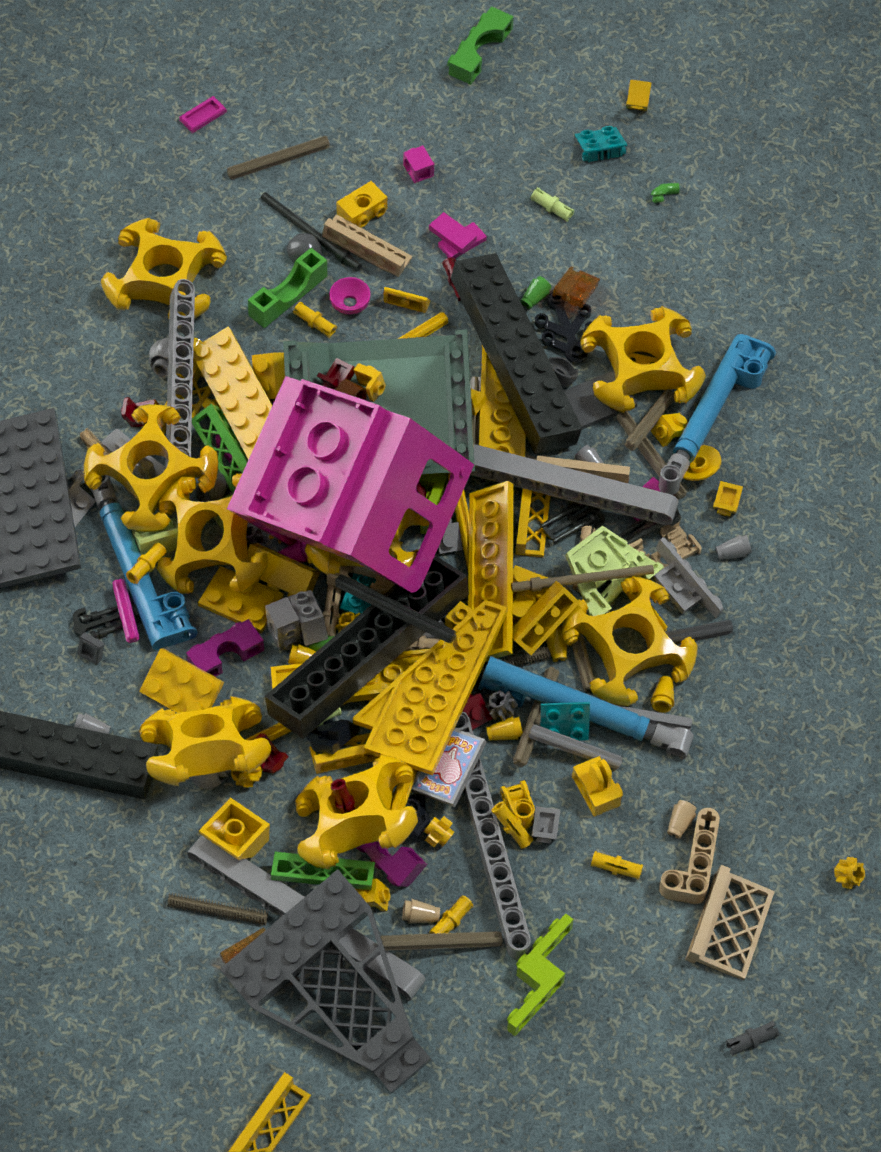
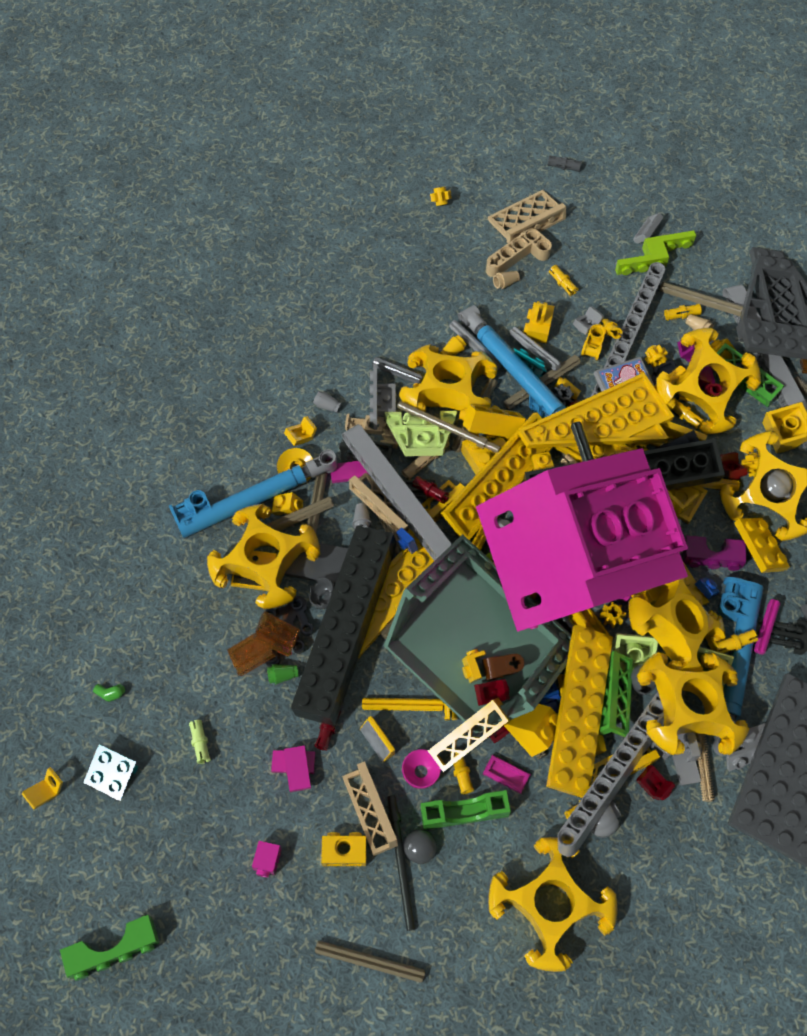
camera: 140 degrees left, 5 degrees up
(208, 612) = (707, 587): none -> blue plate
(272, 342) = (506, 774): none -> dark pink tile
(291, 661) = (678, 506): none -> yellow bracket
(334, 329) = (468, 726): none -> fence
(526, 449) = (406, 541): none -> blue plate
(562, 519) = (430, 489): none -> dark red pin
(566, 305) = (276, 634): none -> clear orange plate
(575, 1005) = (648, 228): none -> light grey tile

